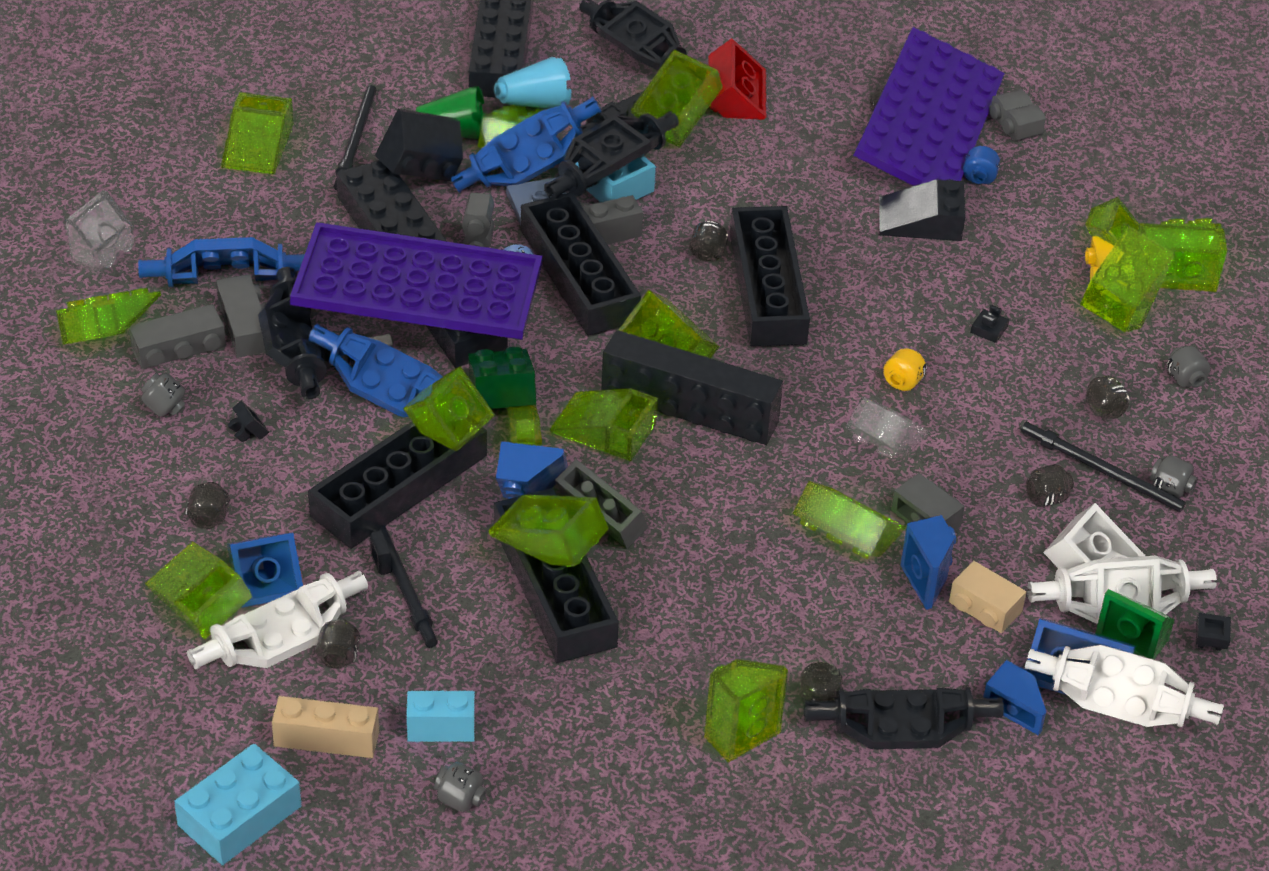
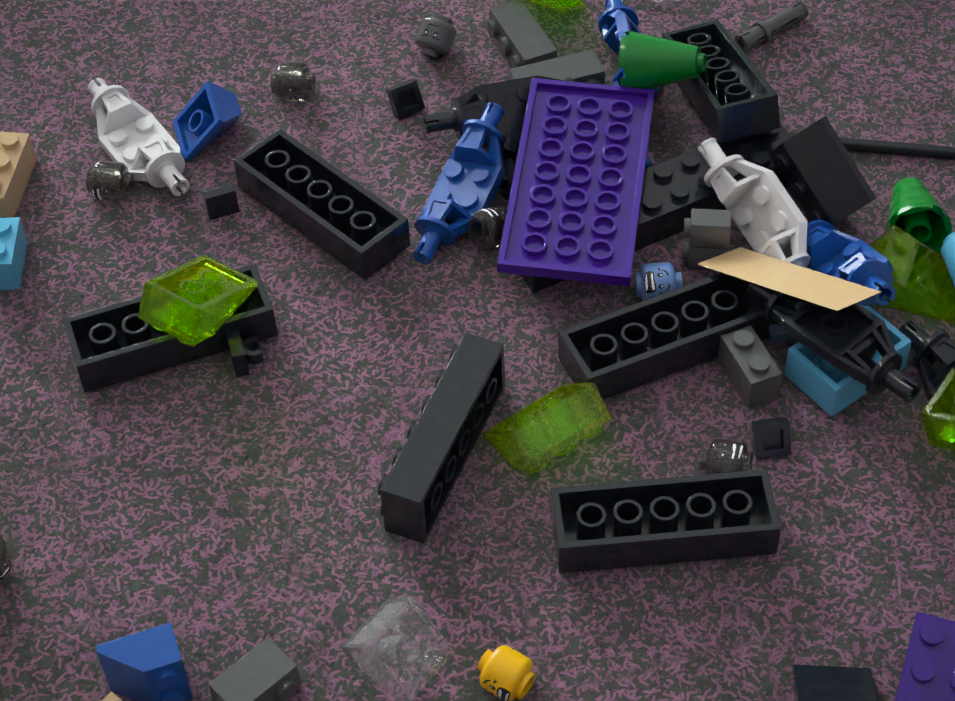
camera: 95 degrees right, 5 degrees up
(195, 182) = (763, 30): none -> dark grey pin
(200, 588) = (172, 82): clear neon green slope -> none
(257, 133) = (846, 64): clear neon green slope -> none
(289, 214) = (658, 61): none -> green cone
(292, 192) = (731, 90): none -> black brick
(420, 618) = (140, 241): black bar -> none
(441, 357) = (486, 227): none -> clear smoke head
(450, 410) = (367, 211): clear neon green slope -> none
(467, 175) = (757, 204): none -> white plate
(503, 377) = (457, 272): dark green brick -> none
(524, 425) = (396, 301): clear neon green slope -> none
(528, 468) = (293, 279): blue slope -> none
(558, 163) = (789, 278): none -> tan sticker
(609, 420) = (400, 372): clear neon green slope -> none
(622, 517) = (268, 362): dark grey brick -> none
(678, 219) = (771, 437): none -> black tile
(846, 520) = (244, 599): clear neon green slope -> none

